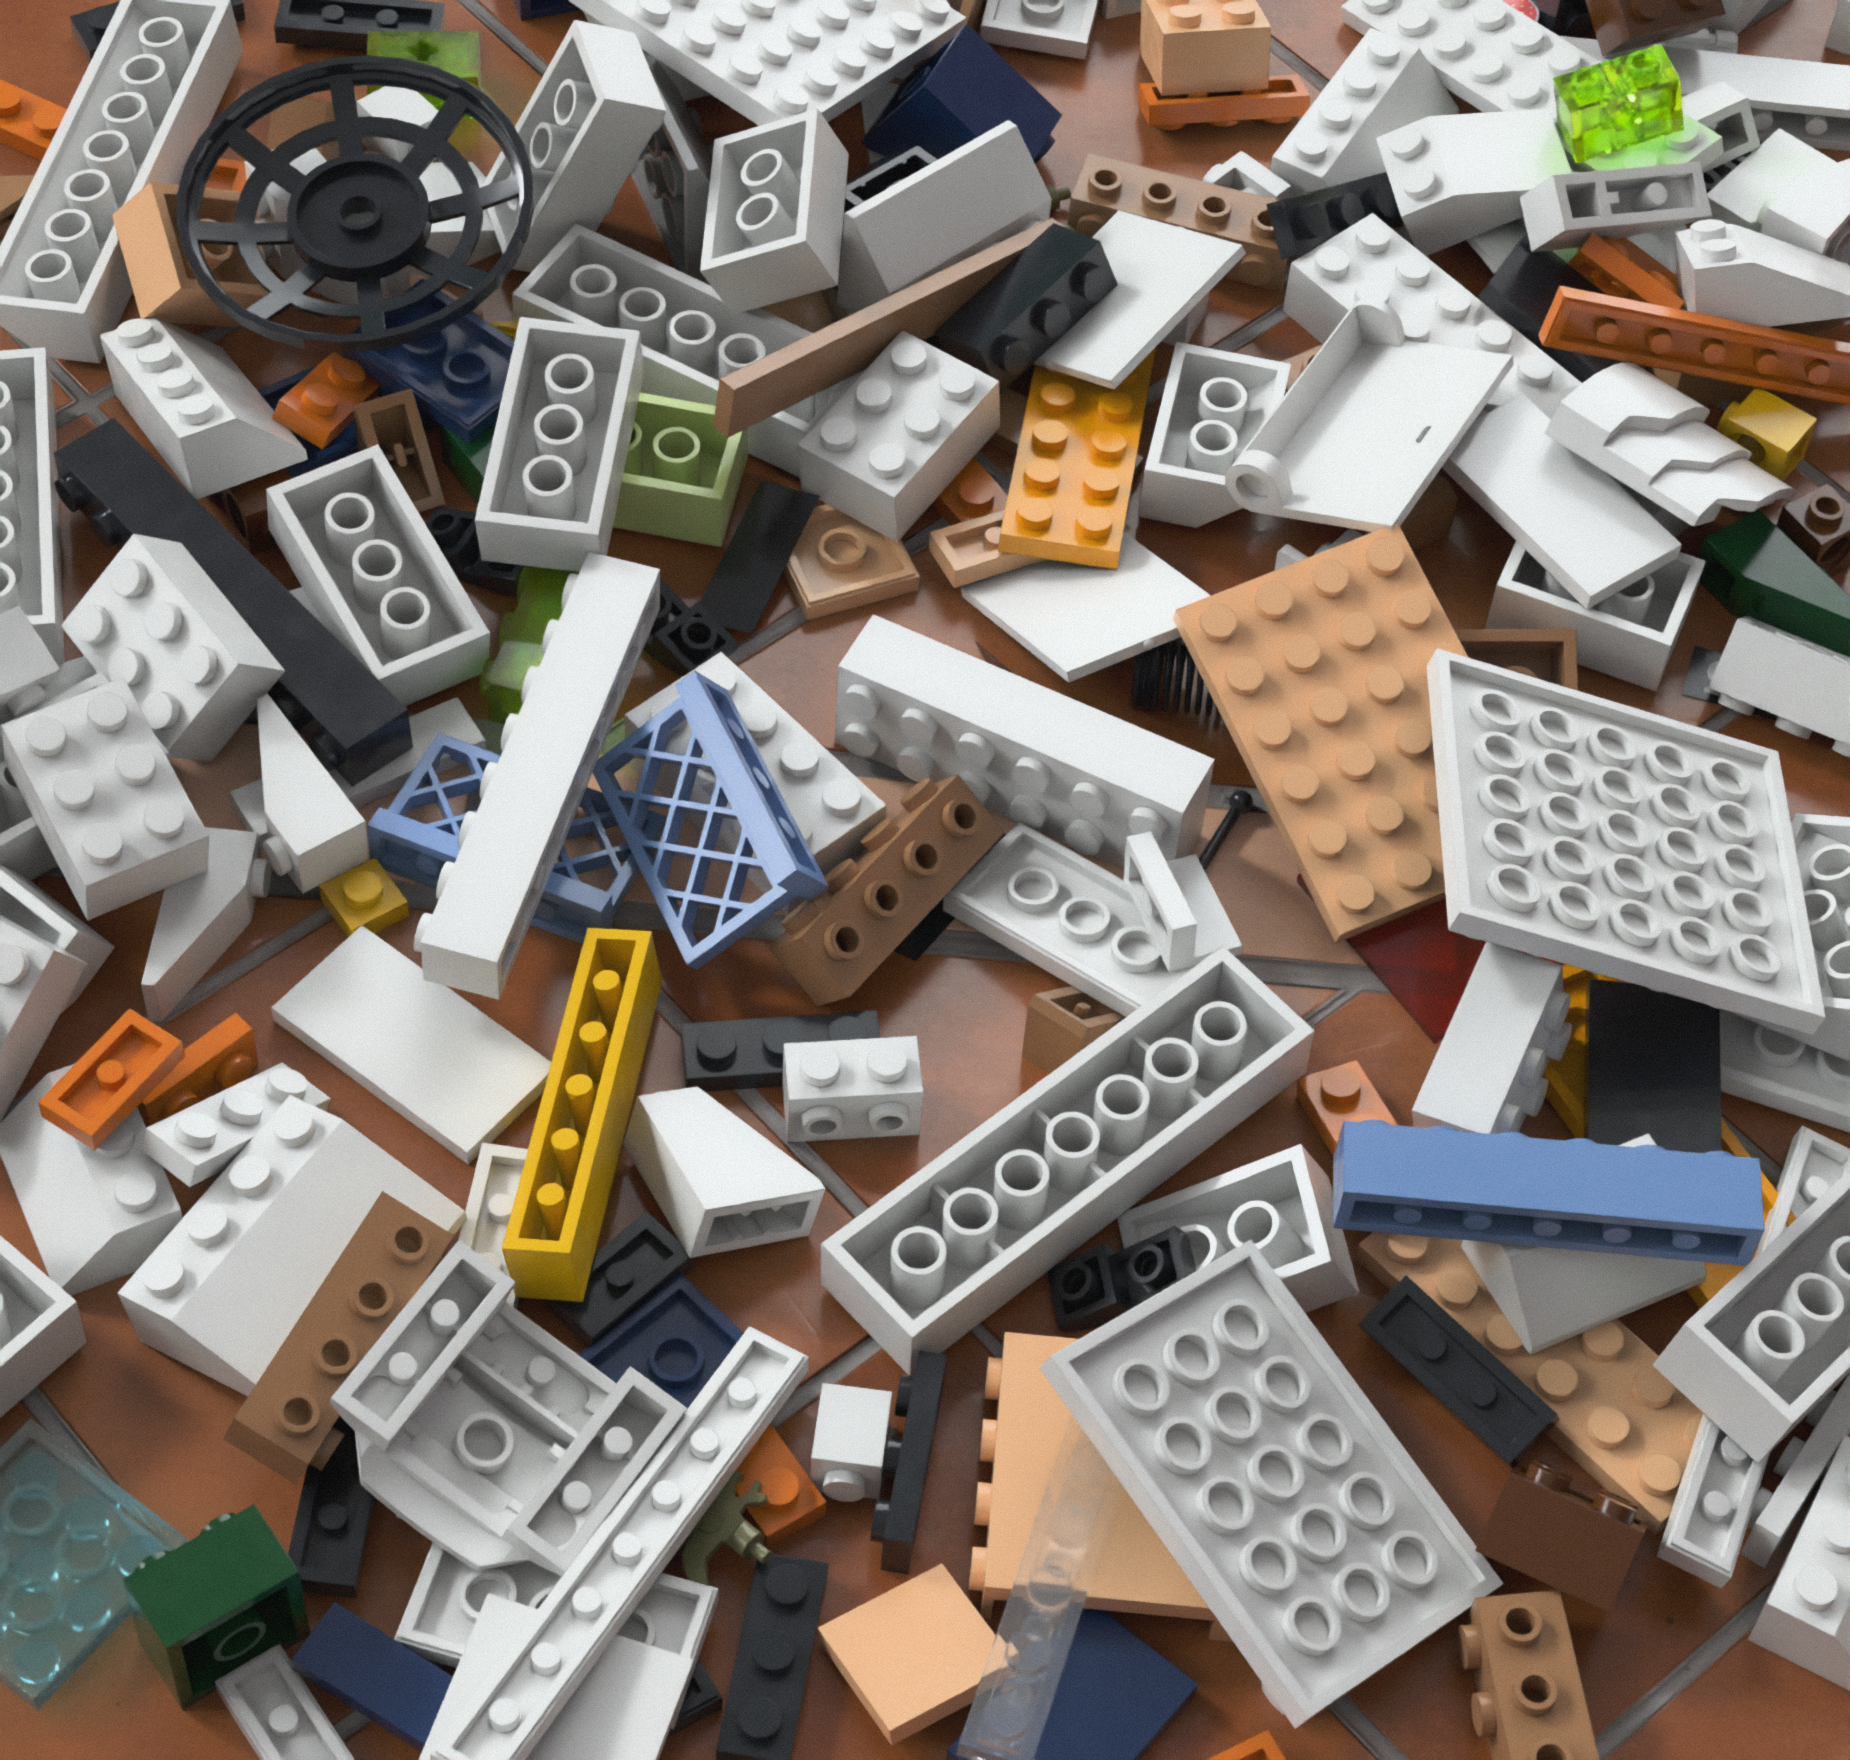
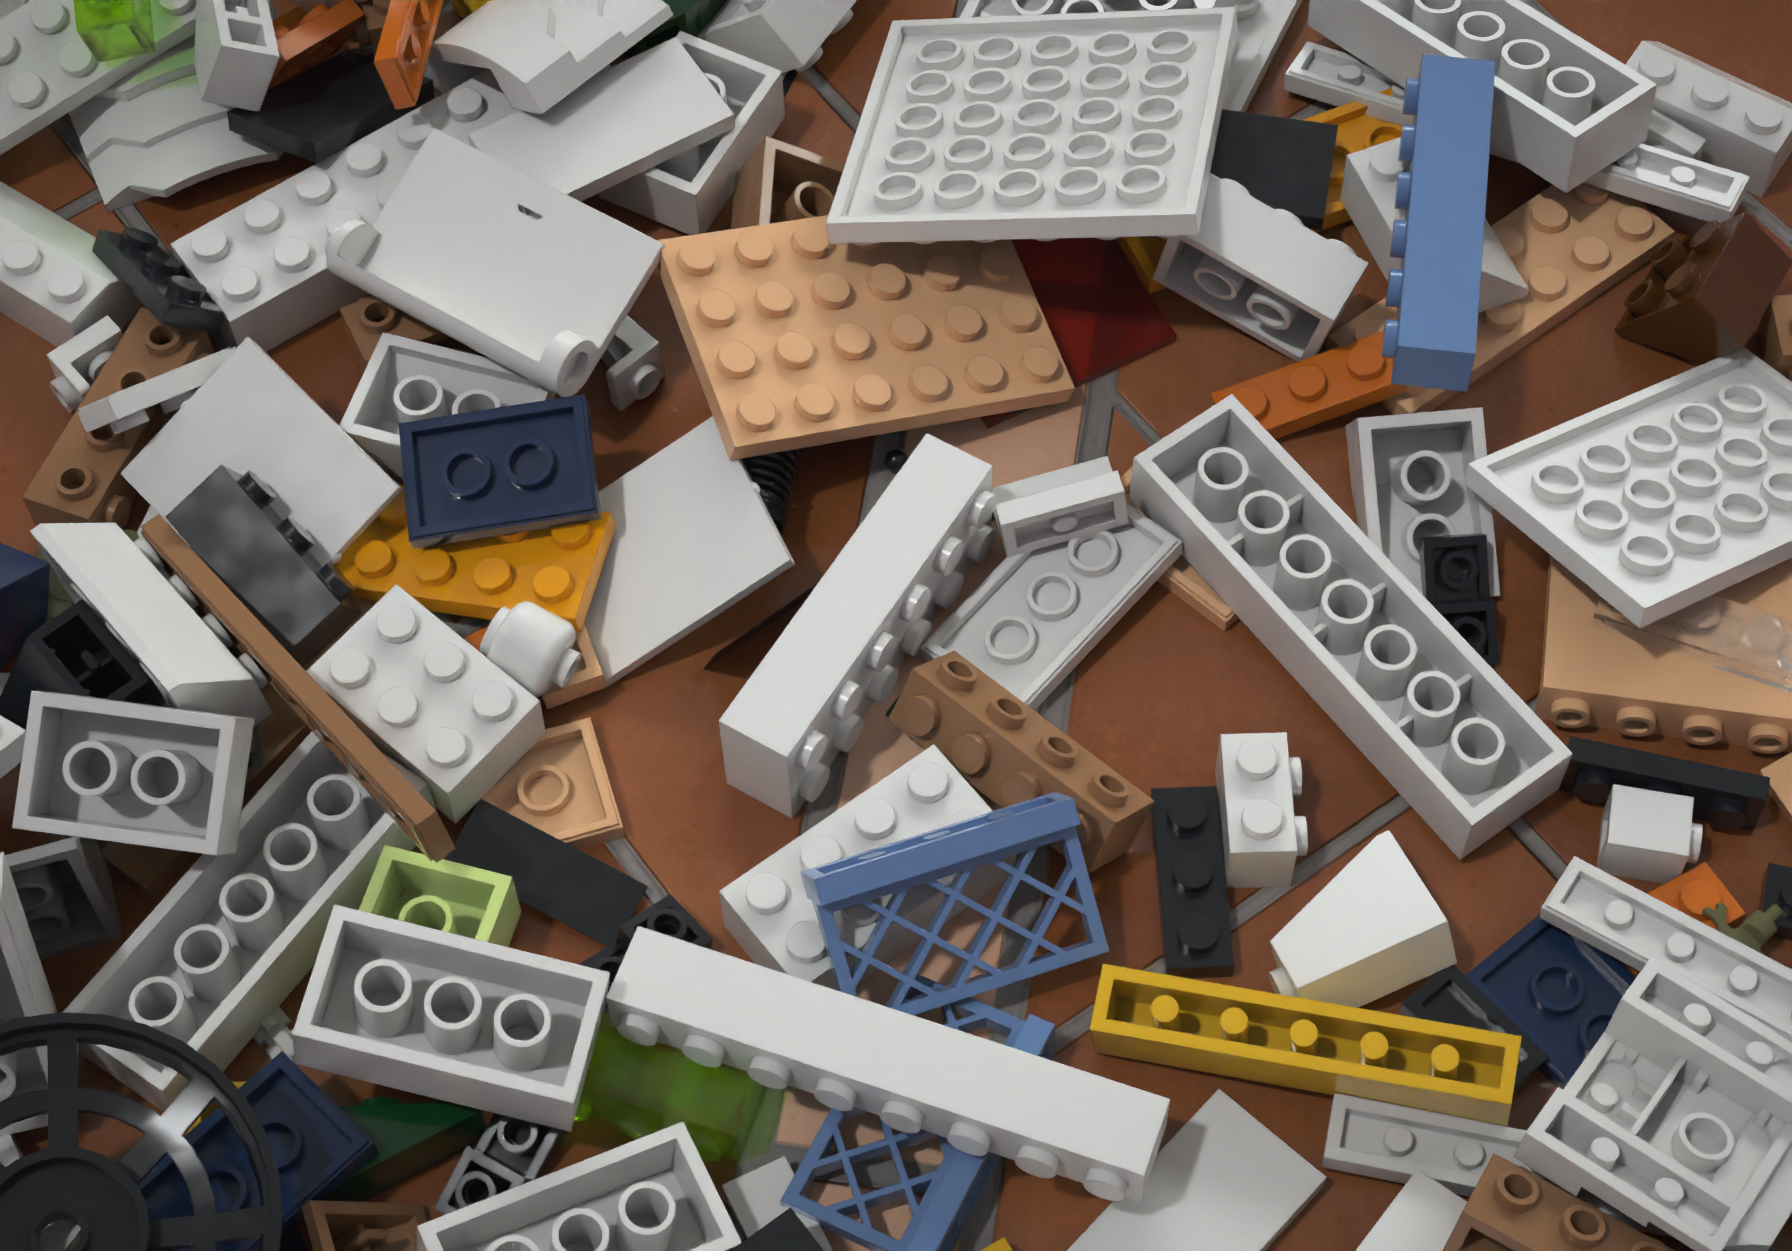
camera: 80 degrees left, 5 degrees up
(964, 502) = (532, 647): none -> white head
(1062, 1025) = (1181, 618): medium nougat slope -> none
(1141, 455) = (499, 471): none -> dark blue tile
(1170, 189) = (127, 407): none -> white hinge
(1459, 1372) = (1543, 352): black plate -> none
(1468, 171) = (136, 146): white slope -> none

